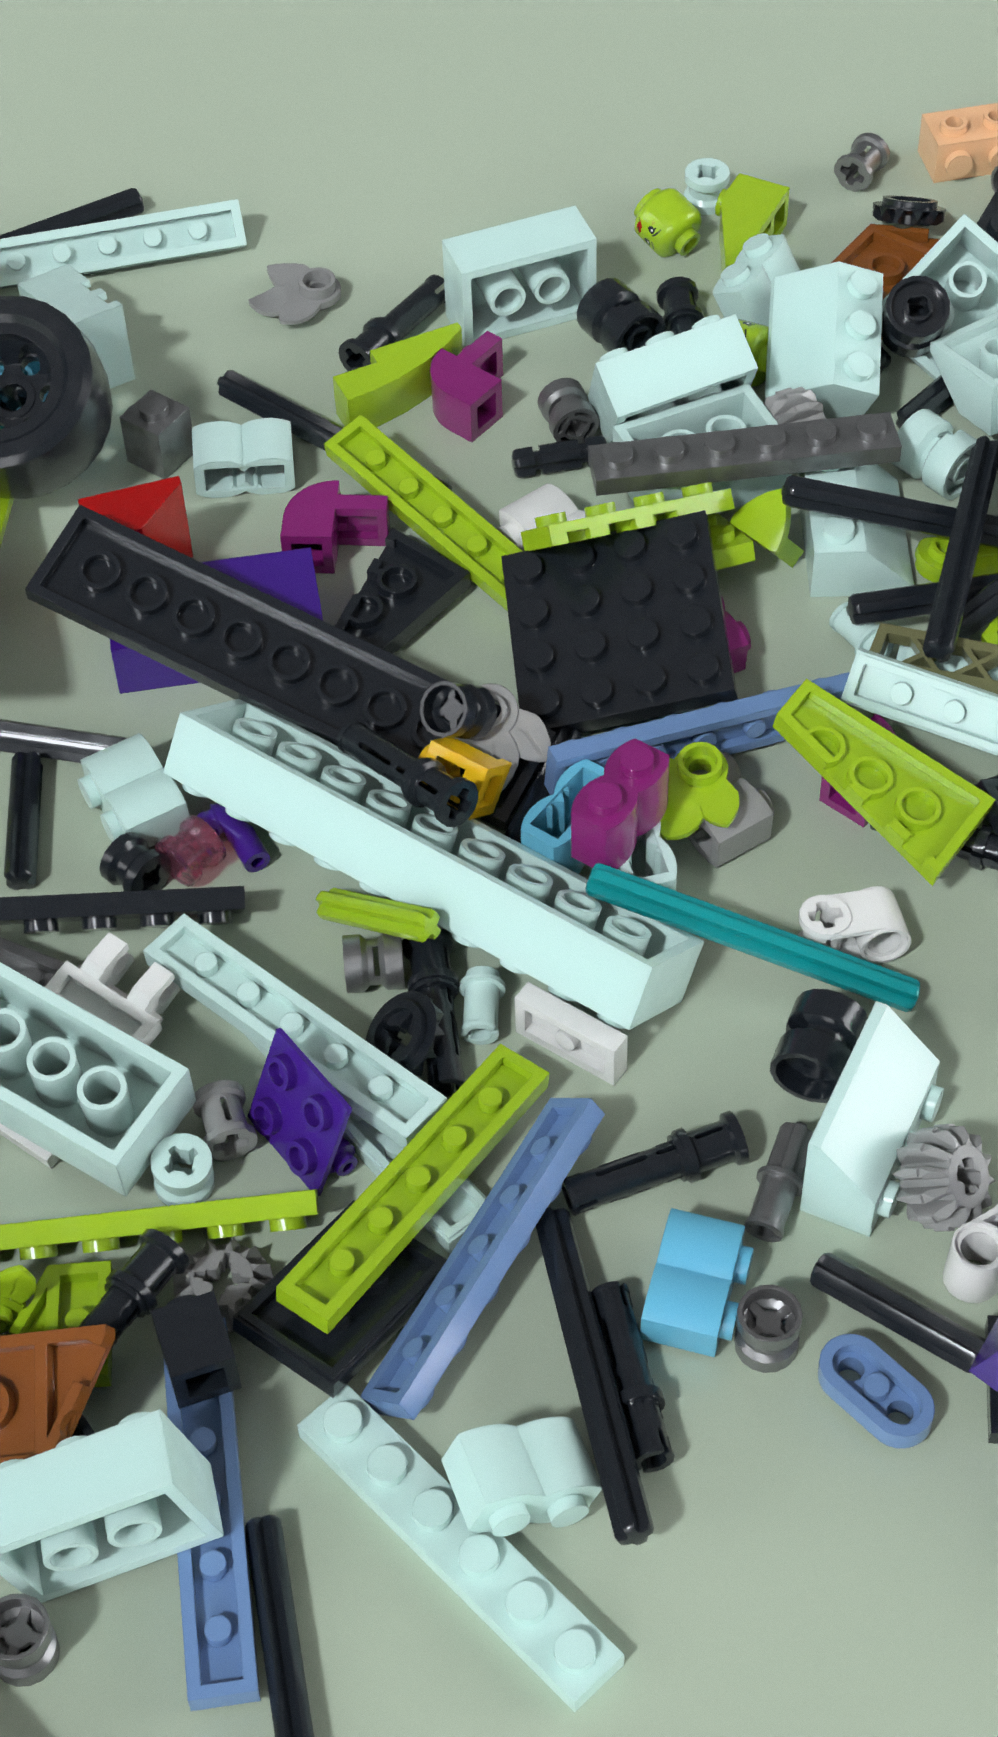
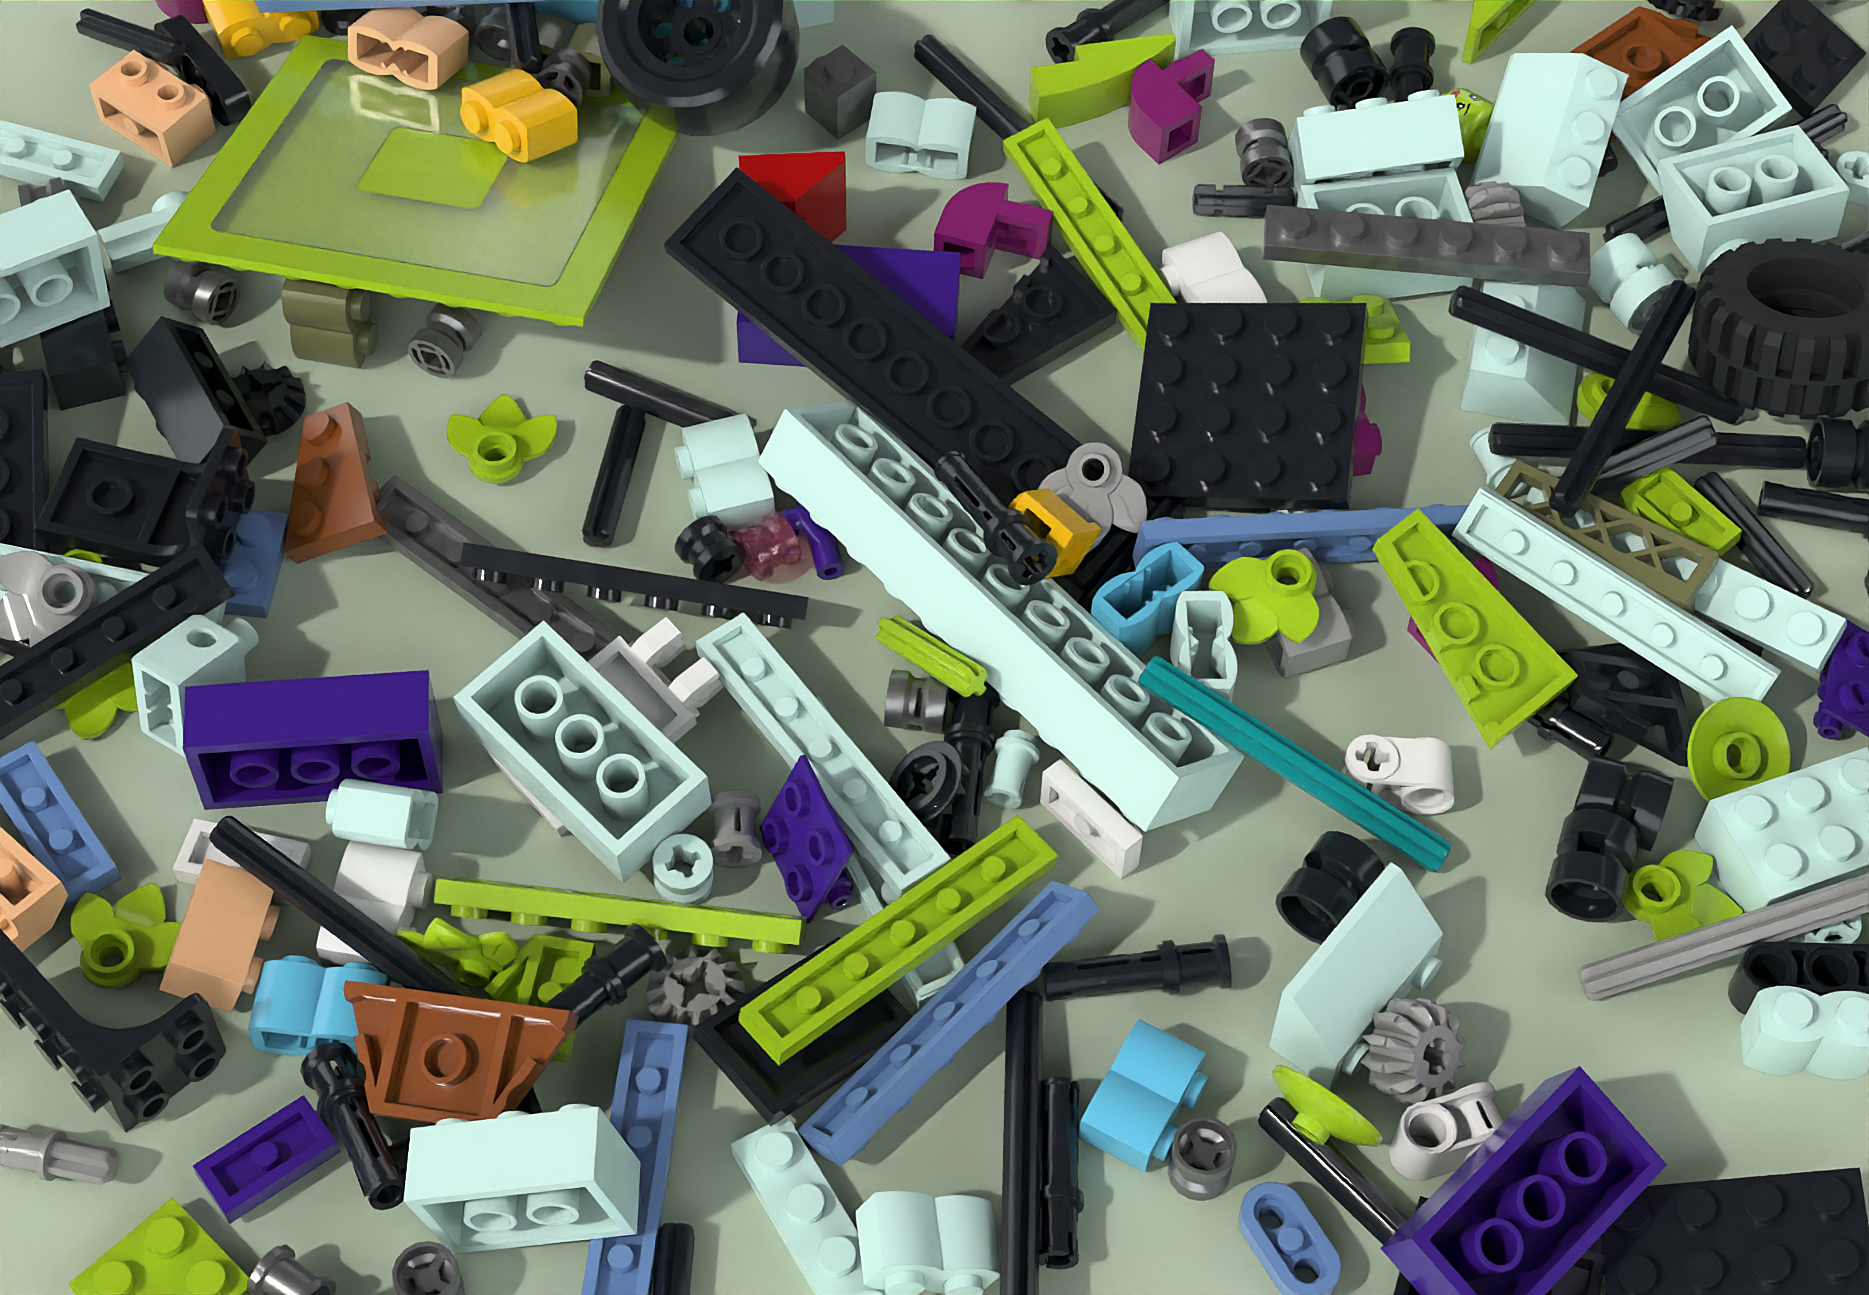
camera: 10 degrees right, 5 degrees up
(196, 1348) = (651, 1049): black brick -> none
(458, 710) = (1059, 465): black wheel -> none
(603, 518) = (1264, 287): lime wing -> none
(620, 805) = (1193, 601): magenta brick -> none
(747, 283) = (1483, 52): light aqua brick -> none
(768, 524) = (1432, 328): lime tile -> none
(779, 1183) = (1252, 1017): flat silver axle -> none
(875, 1252) = (1323, 1112): none -> lime dish
(914, 316) = (1649, 127): black wheel -> none

